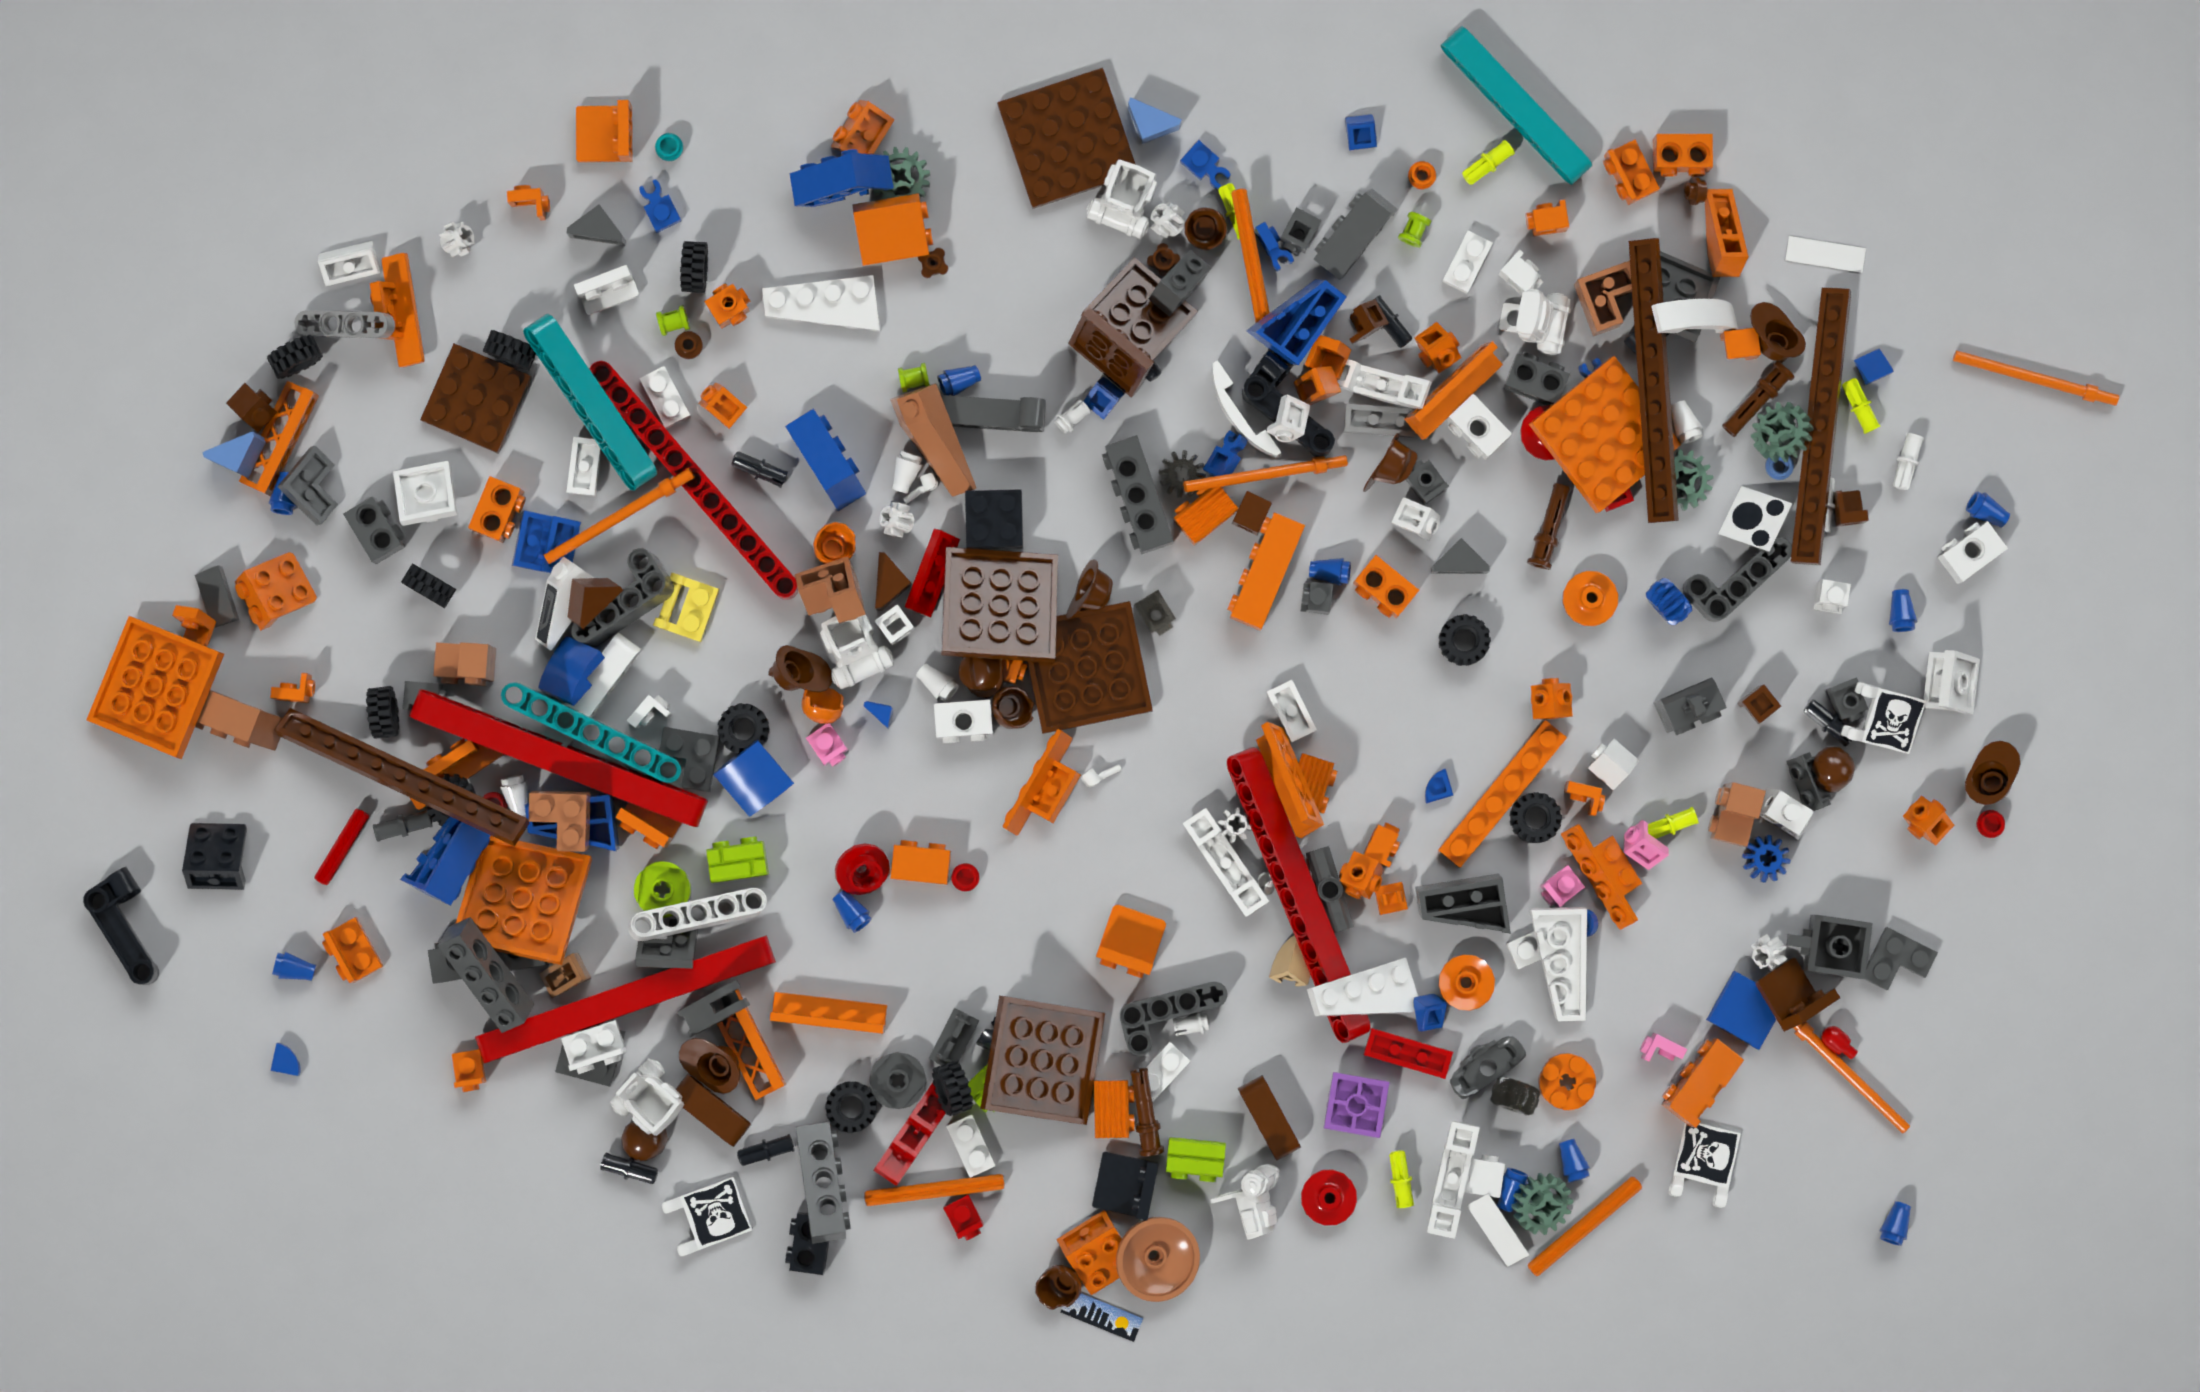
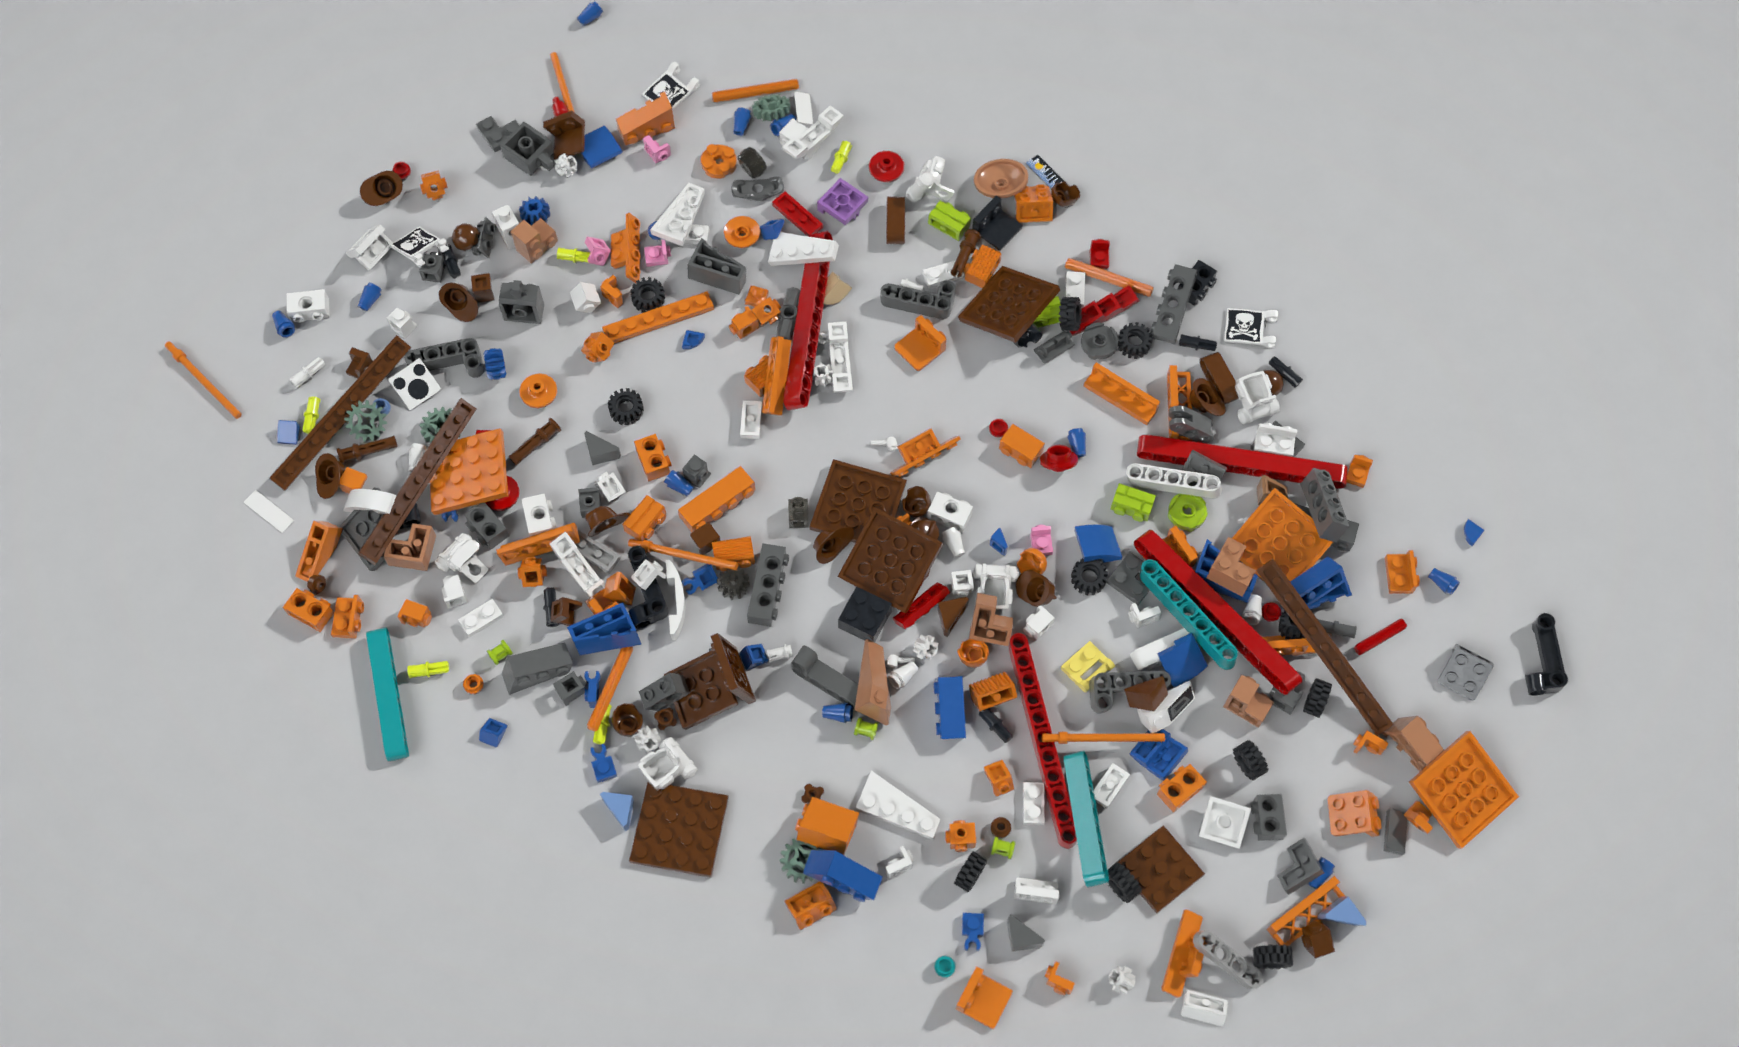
camera: 150 degrees left, 20 degrees down
(774, 627) = (1038, 623): none -> white brick
(784, 230) = (897, 867): none -> white bracket
(784, 506) = (992, 691): none -> orange brick
(1343, 498) = (644, 519): none -> orange brick
(1778, 667) = (458, 301): none -> reddish brown piece

